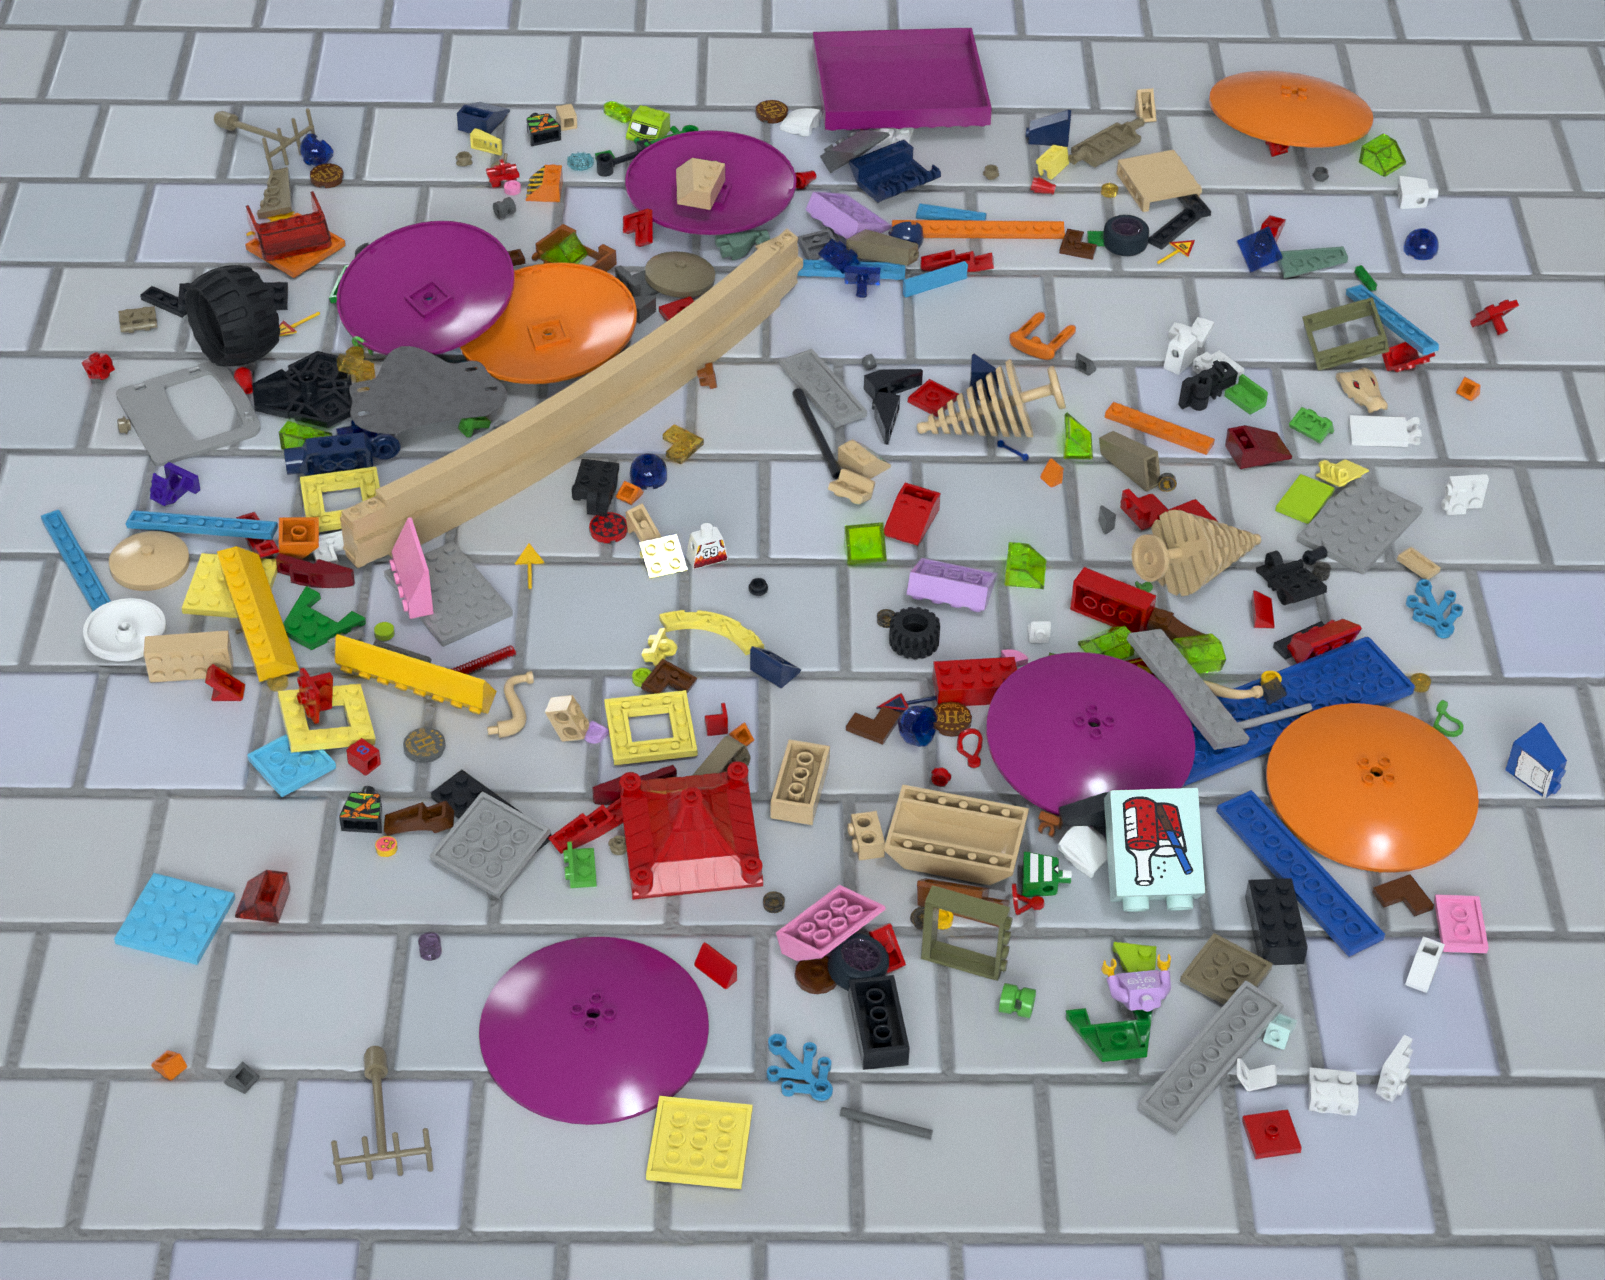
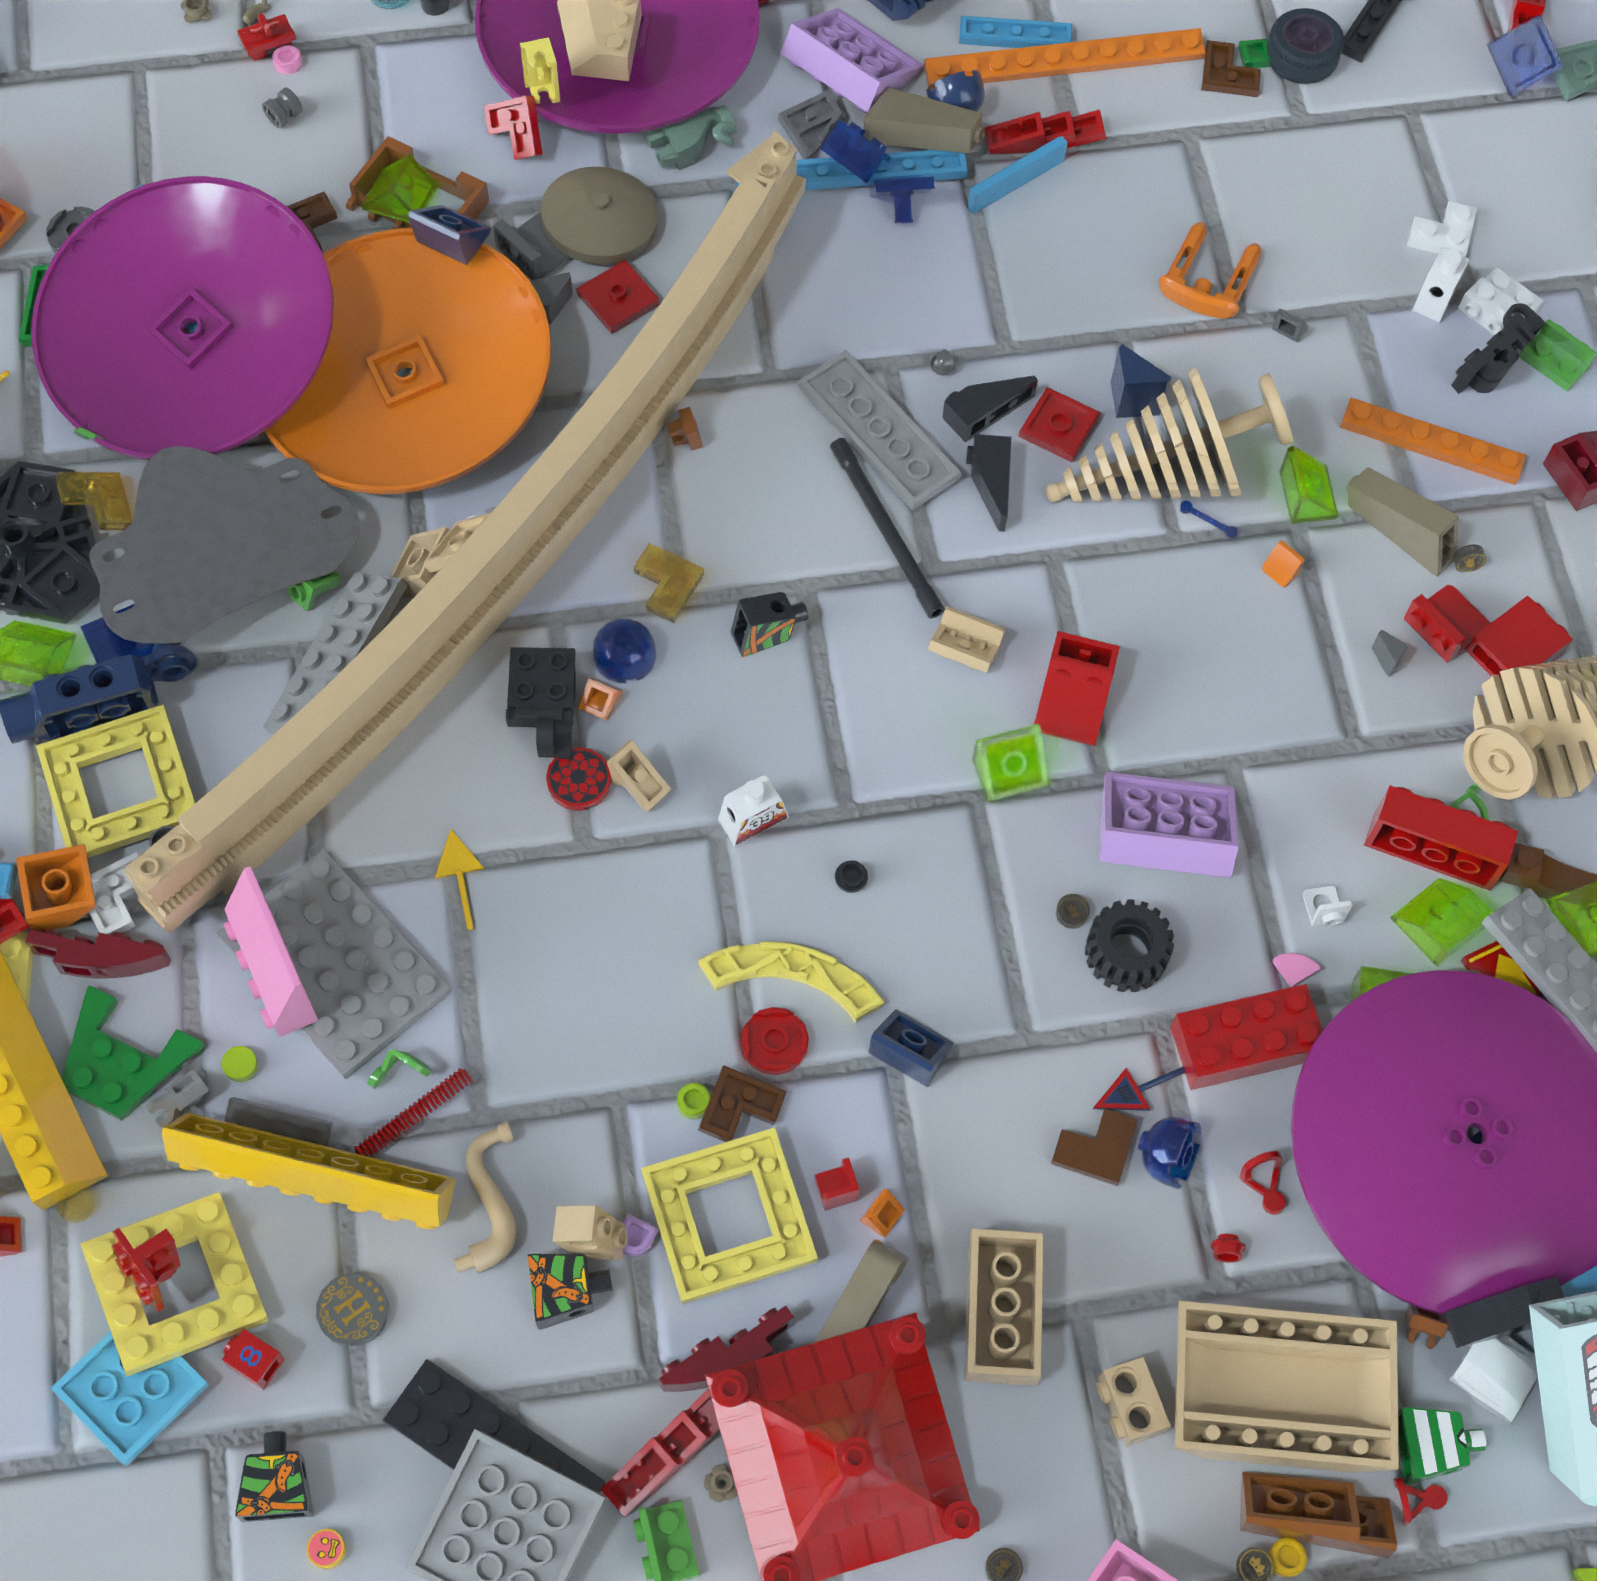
camera: 10 degrees left, 20 degrees up
(356, 352) = (84, 455): clear yellow tile -> none
(420, 818) = (374, 1487): reddish brown slope -> none
(462, 644) = (391, 1059): none -> bright green piece
(546, 184) = (342, 49): orange slope -> none
(547, 746) = (564, 1287): none -> torso
(586, 264) = (448, 232): none -> slope
(658, 194) = (540, 69): none -> light yellow hinge
(662, 556) = (682, 833): hinge -> none
(666, 646) = (716, 1037): light yellow hips -> none
(695, 656) = (774, 1041): none -> red tile
(733, 465) = (765, 622): none -> black torso
(861, 459) = (971, 578): tan slope -> none
(952, 718) = (1223, 1114): reddish brown tile -> none
(1024, 567) = (1277, 772): clear neon green slope -> none
(1182, 246) = (1394, 54): piece -> none

